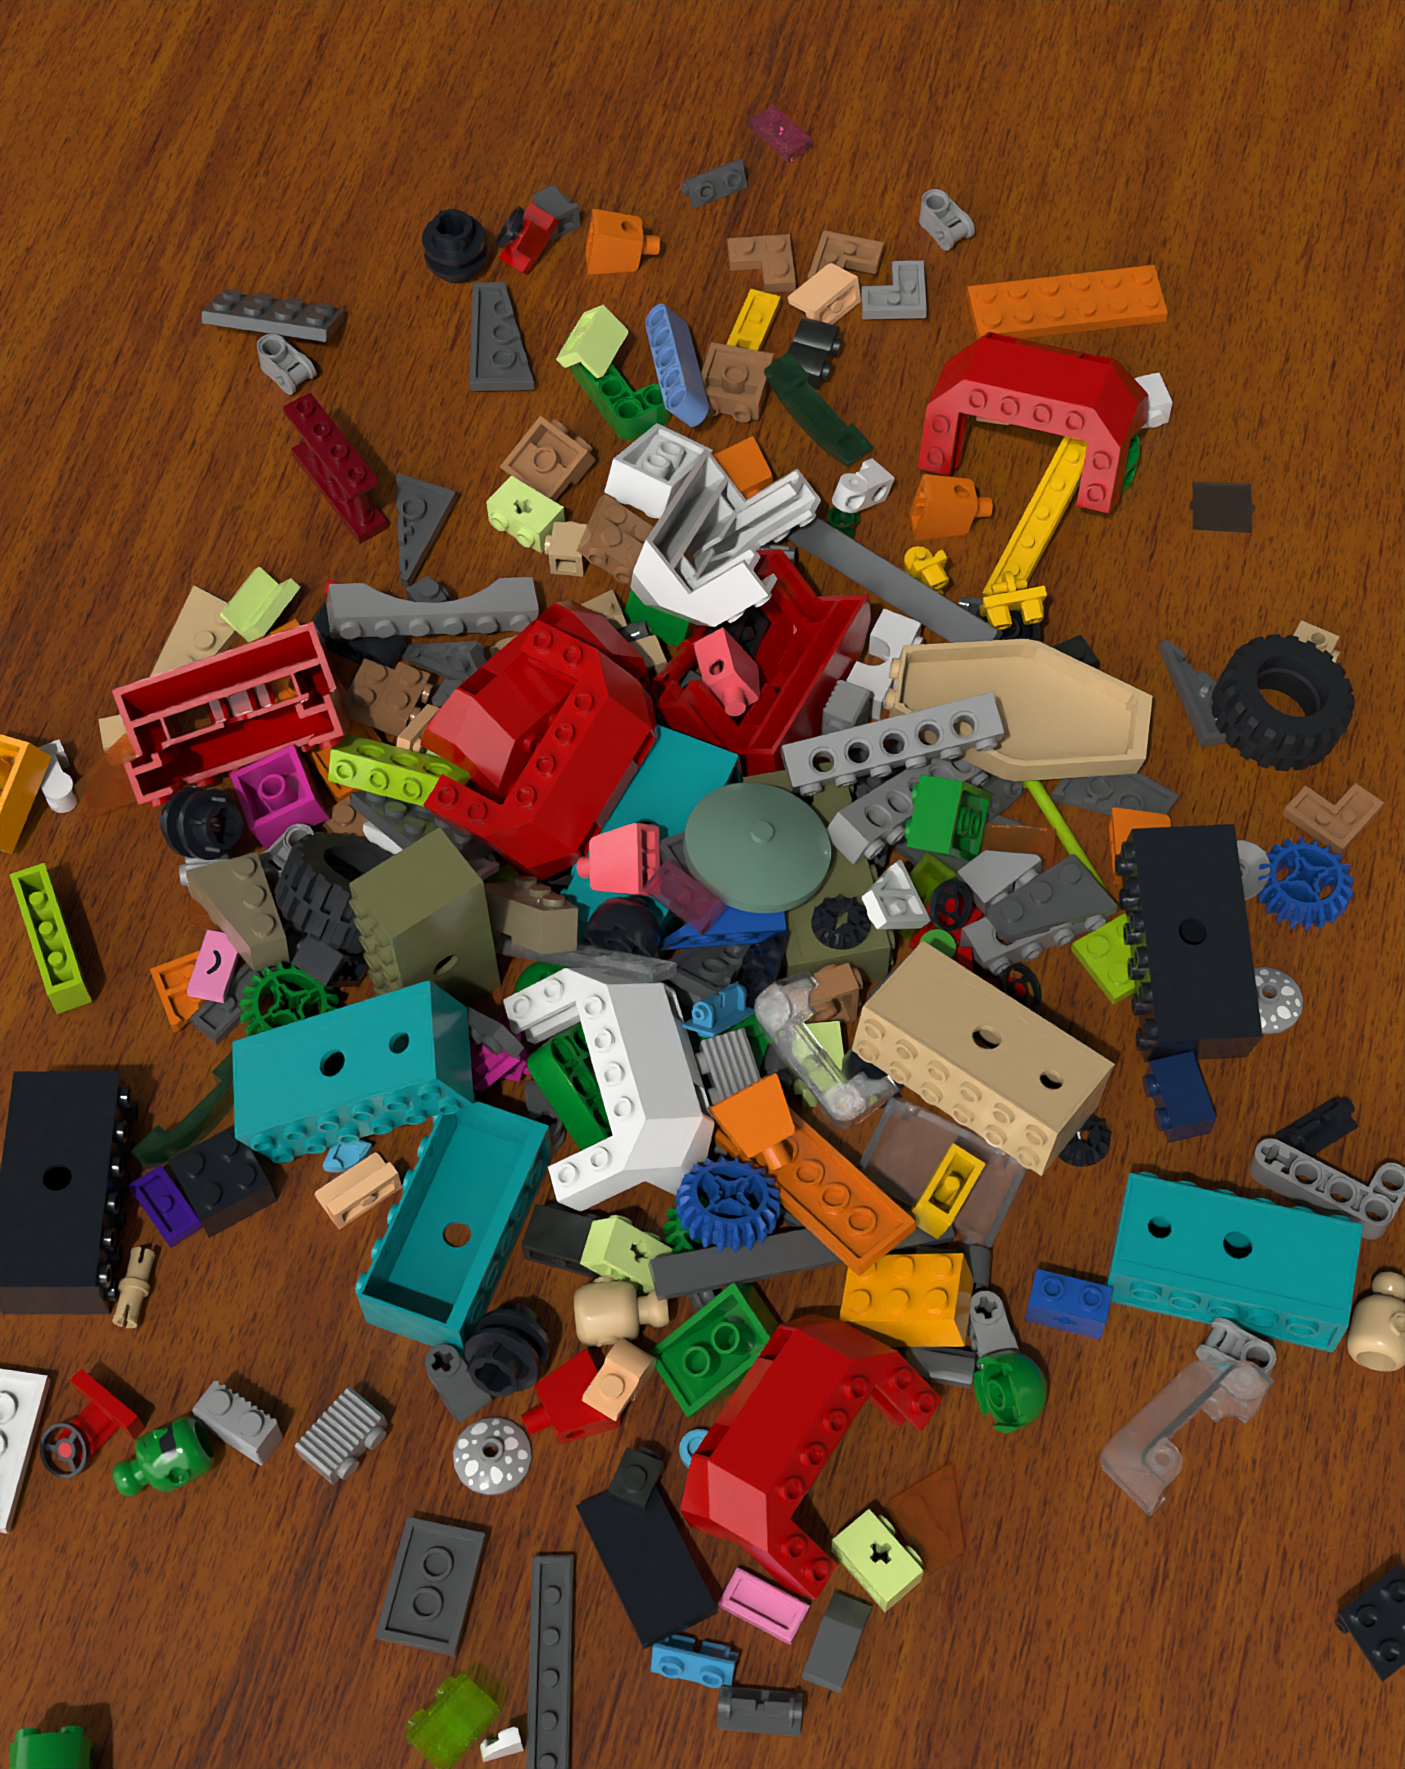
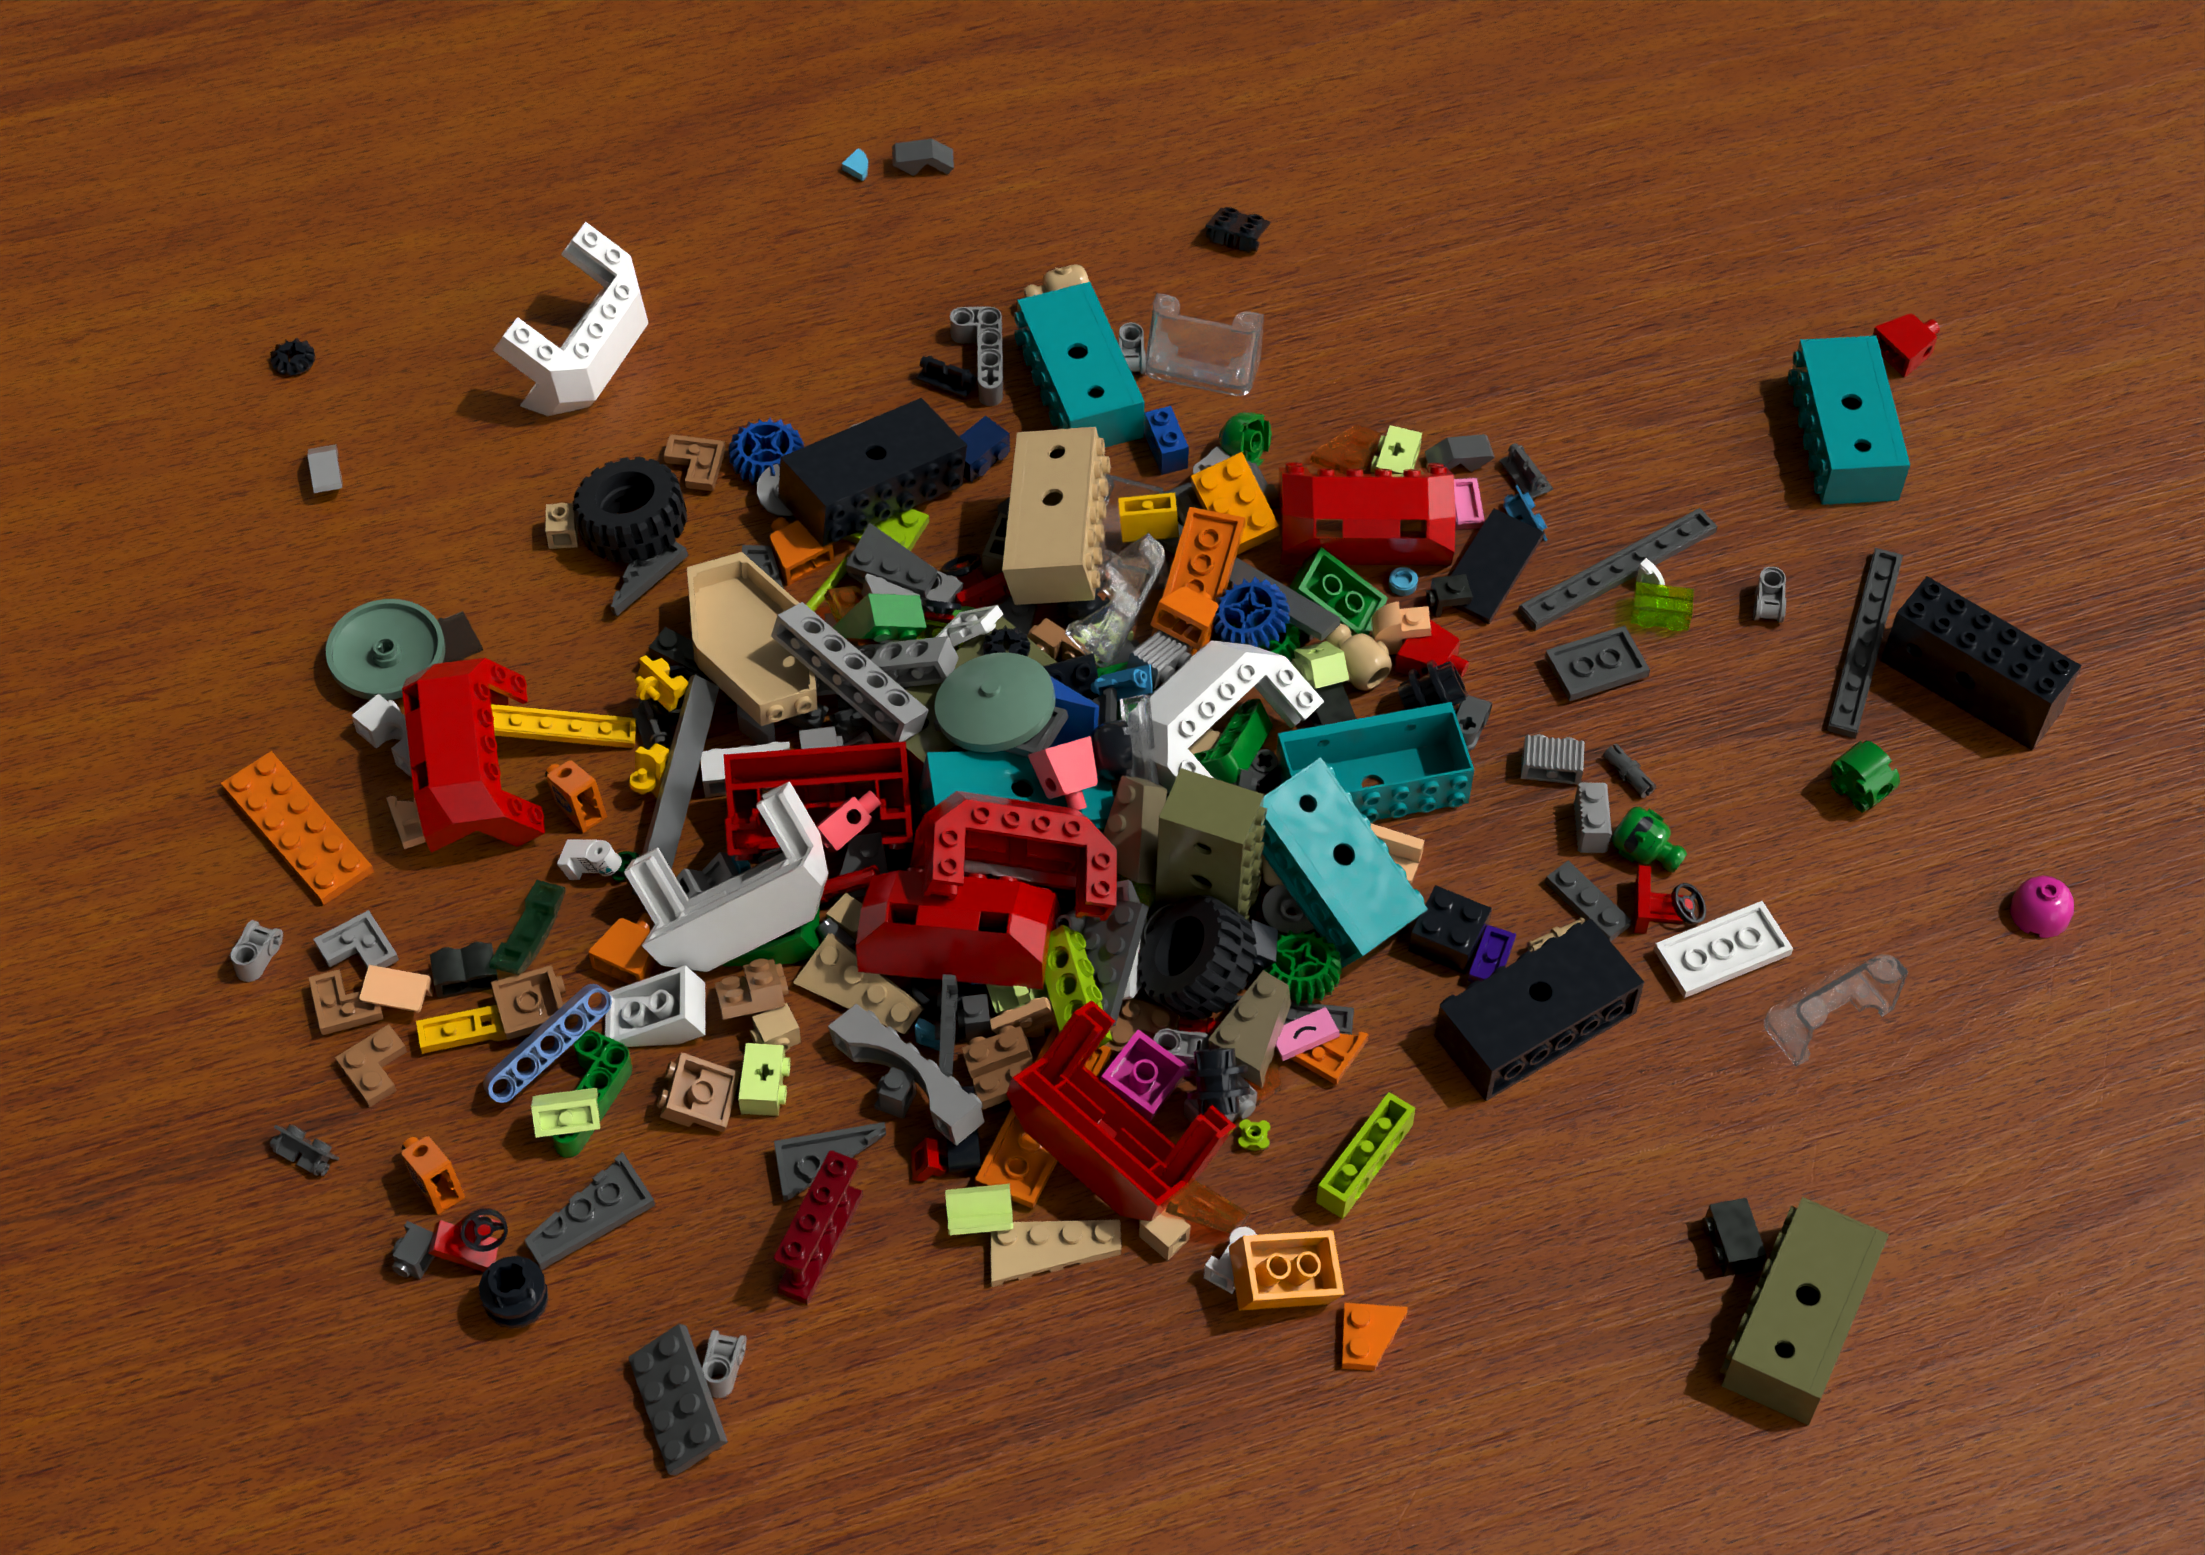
camera: 125 degrees left, 5 degrees down
(155, 1355) = (1588, 900): none -> dark grey plate
(159, 879) = (1251, 1142): none -> lime plate
(202, 1120) = (1410, 972): clear green slope -> none
(271, 1517) = (1629, 770): none -> dark grey pin
(497, 1473) = (1502, 692): light grey dish -> none
(684, 897) = (1074, 706): clear pink plate -> none
(780, 133) = (209, 1133): clear pink plate -> none
(1229, 434) = (382, 646): none -> sand green dish

